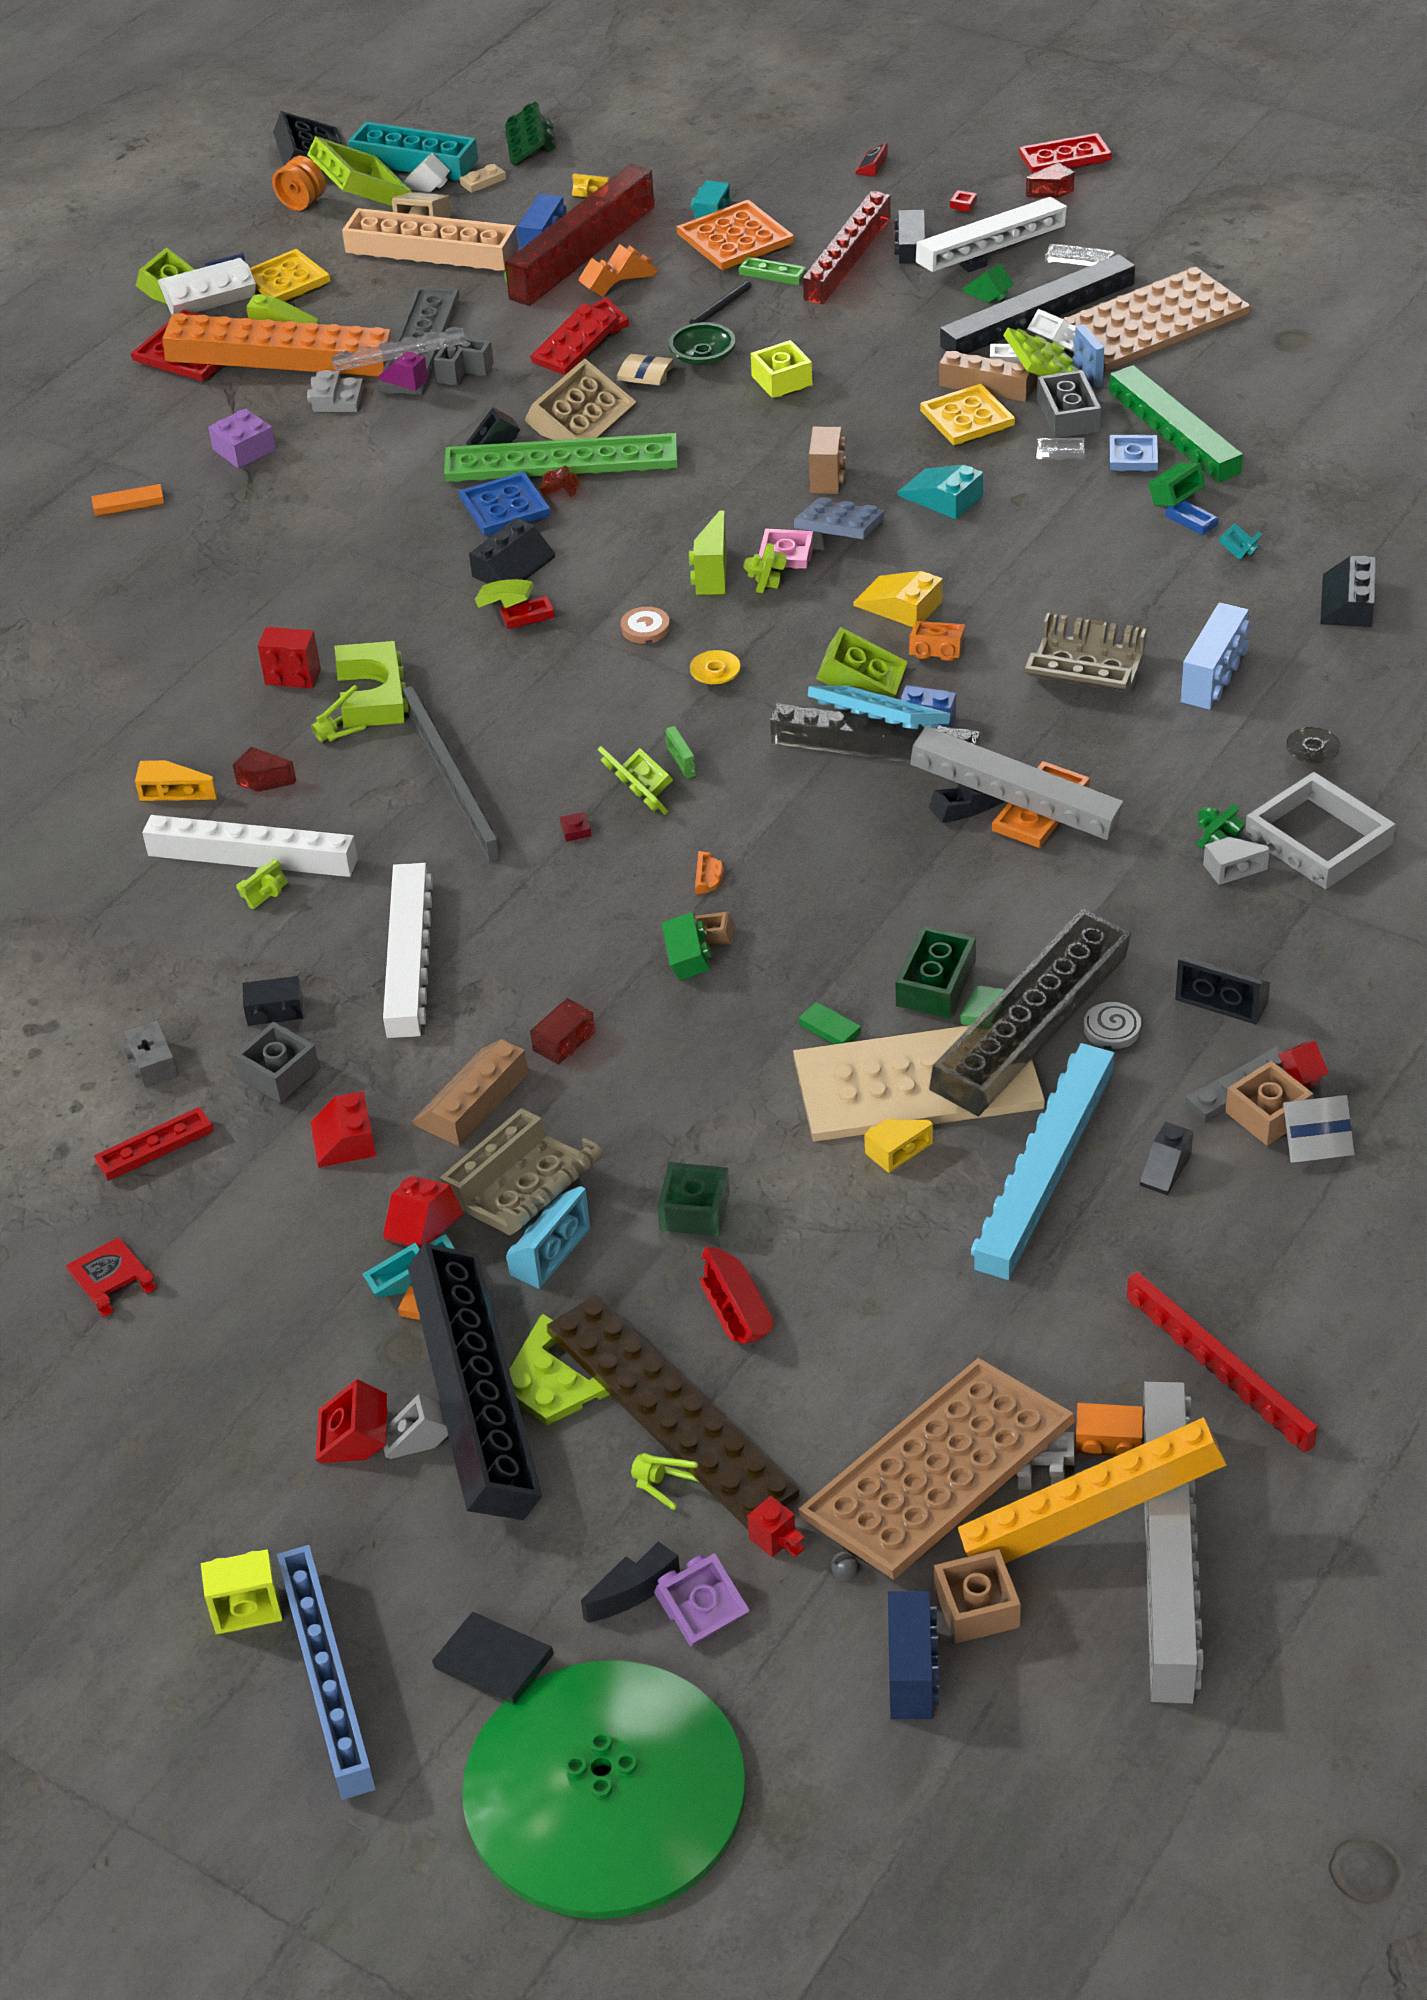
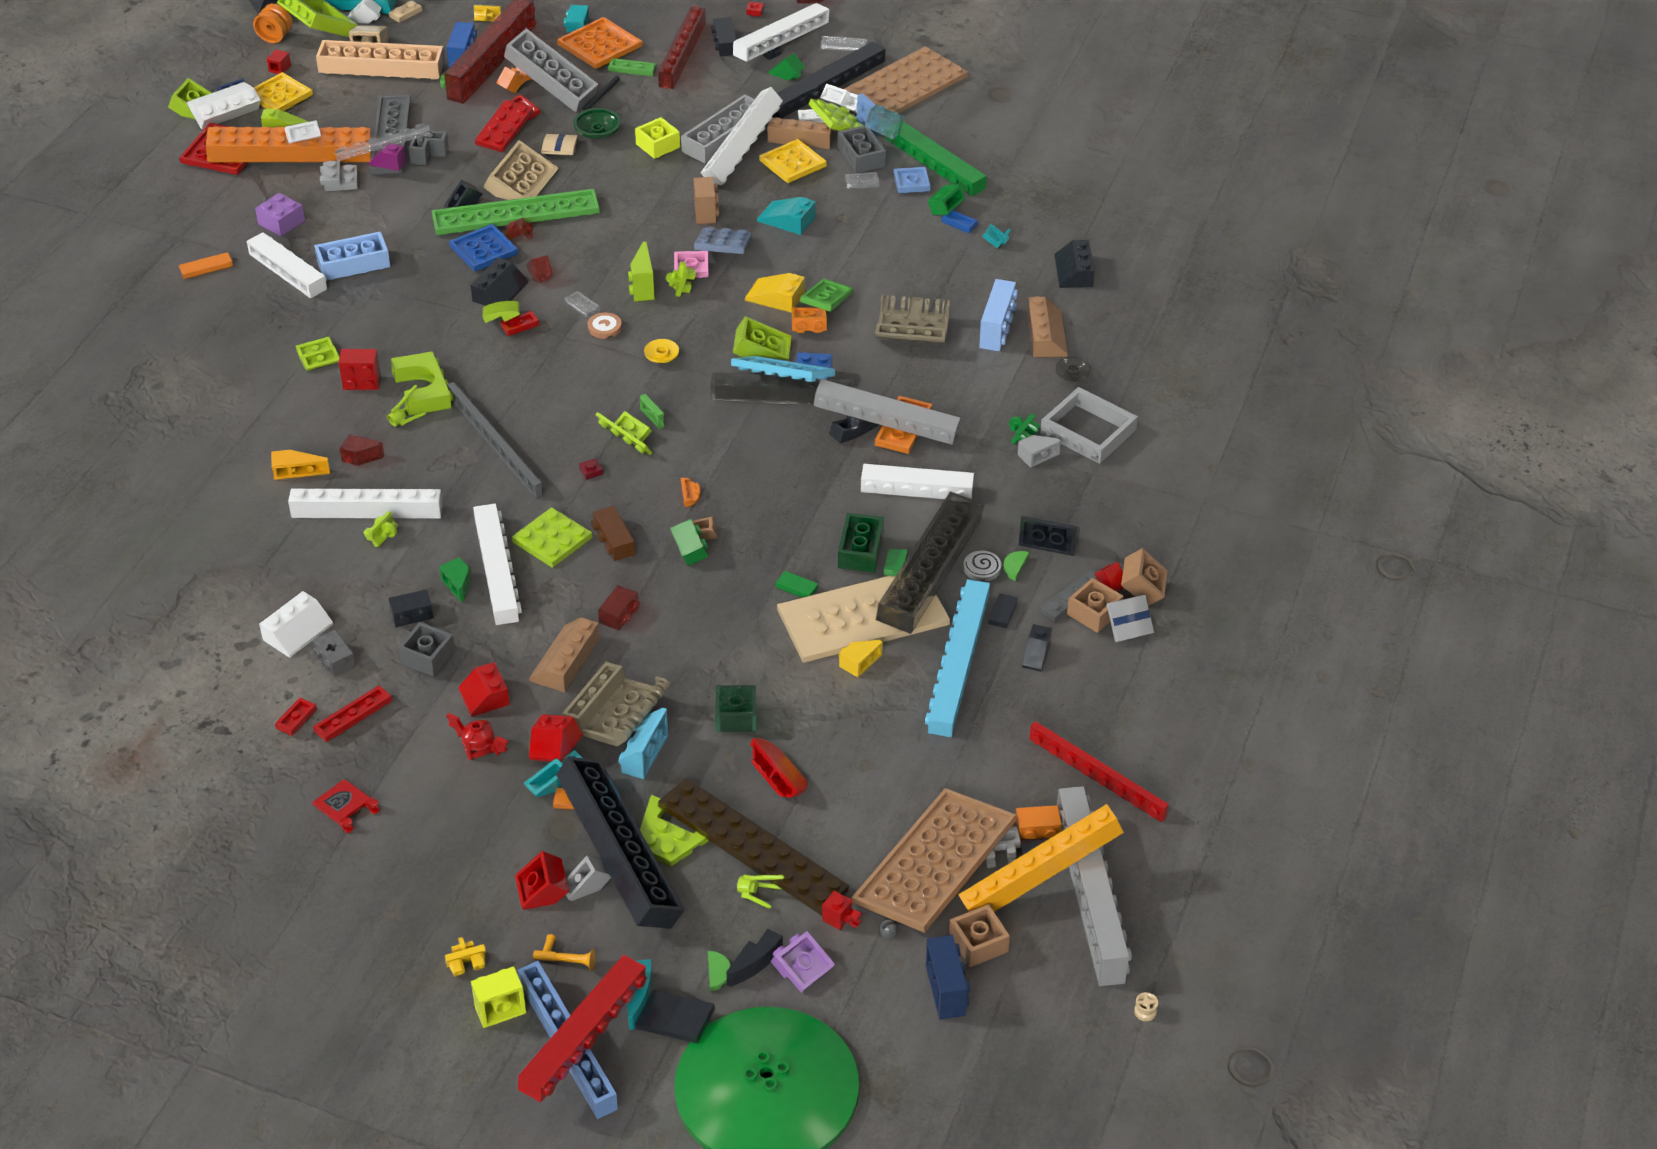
camera: 15 degrees left, 0 degrees up
(75, 1138) = (296, 716): none -> red plate
(109, 1007) = (295, 624): none -> white slope
(214, 1517) = (464, 953): none -> yellow hips
(233, 507) = (287, 265): none -> white brick
(240, 630) = (317, 353): none -> lime slope
(293, 328) = (302, 132): none -> white plate
(296, 234) = (278, 62): none -> red brick
(314, 1199) = (478, 737): none -> red helmet
(321, 501) = (352, 256): none -> light blue brick
(341, 1659) = (582, 1029): none -> red brick
(347, 963) = (456, 577): none -> green slope
(389, 1551) = (547, 955): none -> light orange piece
(448, 1609) = (640, 996): none -> teal slope
(496, 919) = (552, 537): none -> lime plate
(573, 538) = (540, 269): none -> clear red slope
(574, 1587) = (717, 970): none -> bright green tile
(581, 922) = (613, 533): none -> reddish brown brick
(620, 593) = (582, 304): none -> clear plate
(652, 266) = (550, 70): none -> light grey brick
(879, 363) = (708, 136): none -> light grey brick
(898, 375) = (742, 136): none -> white brick
(971, 607) = (826, 295): none -> bright green tile
(1039, 890) = (915, 481): none -> white brick
(1107, 366) = (884, 121): none -> clear light blue brick
(1128, 1096) = (1003, 610): none -> black tile
(1162, 1026) = (1014, 563): none -> bright green tile
(1223, 1742) = (1150, 1002): none -> tan wheel
(1286, 681) = (1046, 328): none -> medium nougat slope
(1353, 1067) = (1144, 576): none -> medium nougat brick

